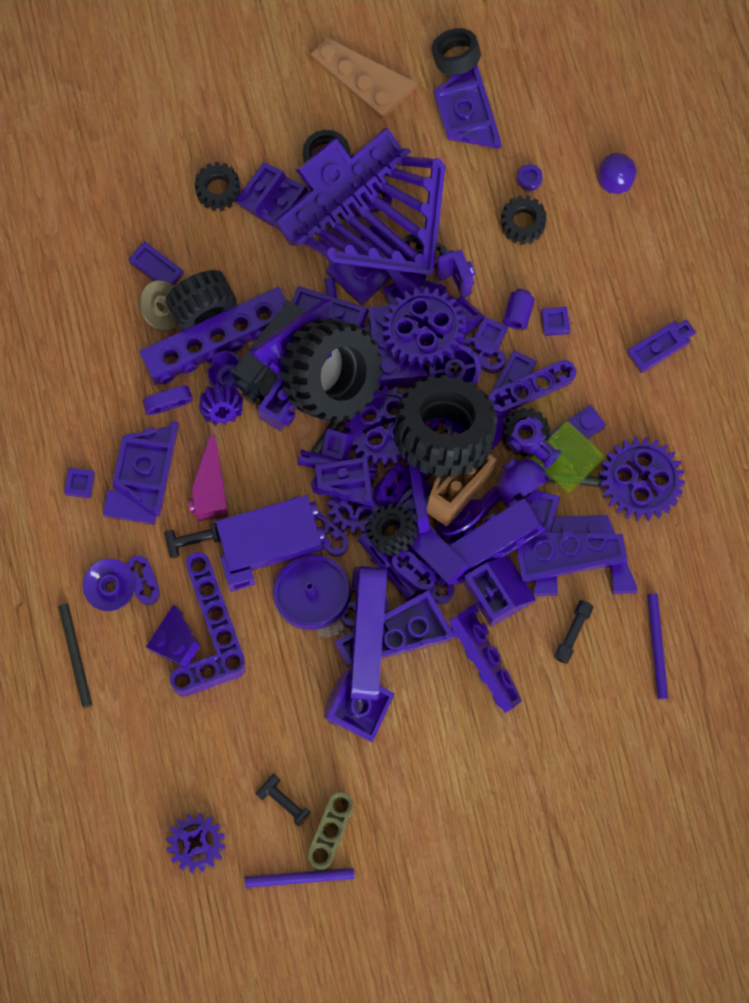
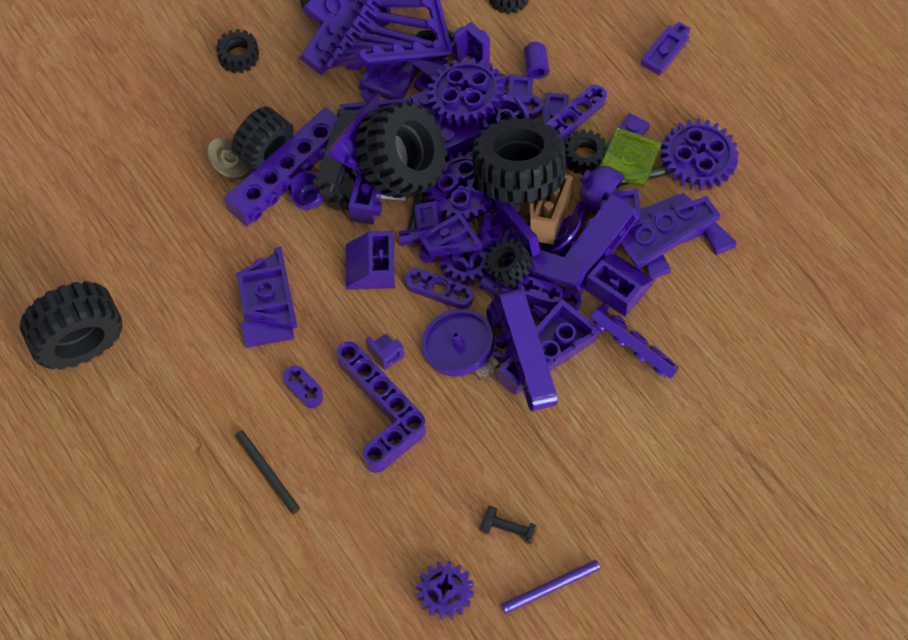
camera: 20 degrees left, 10 degrees down
(79, 483) = (212, 327): dark purple tile -> none
(99, 577) = (267, 391): dark purple dish -> none
(155, 264) = (206, 130): dark purple tile -> none
(167, 400) = (264, 232): dark purple beam -> none
(174, 543) = (319, 346): black piece -> none
(174, 639) = (352, 424): dark purple wing -> none
(208, 487) = (332, 291): magenta slope -> none
(221, 404) = (313, 217): dark purple gear -> none
(259, 473) = (371, 261): none -> dark purple slope
(270, 194) = (285, 43): dark purple slope -> none
(271, 535) = (402, 305): dark purple brick -> none
(330, 817) = (564, 523): olive beam -> none
(356, 715) = (541, 426): dark purple slope -> none
(534, 445) = (598, 153): dark purple connector -> none
(555, 321) = (570, 60): dark purple tile -> none
(565, 650) = (697, 312): black bar -> none
(657, 646) = (774, 282): dark purple bar -> none

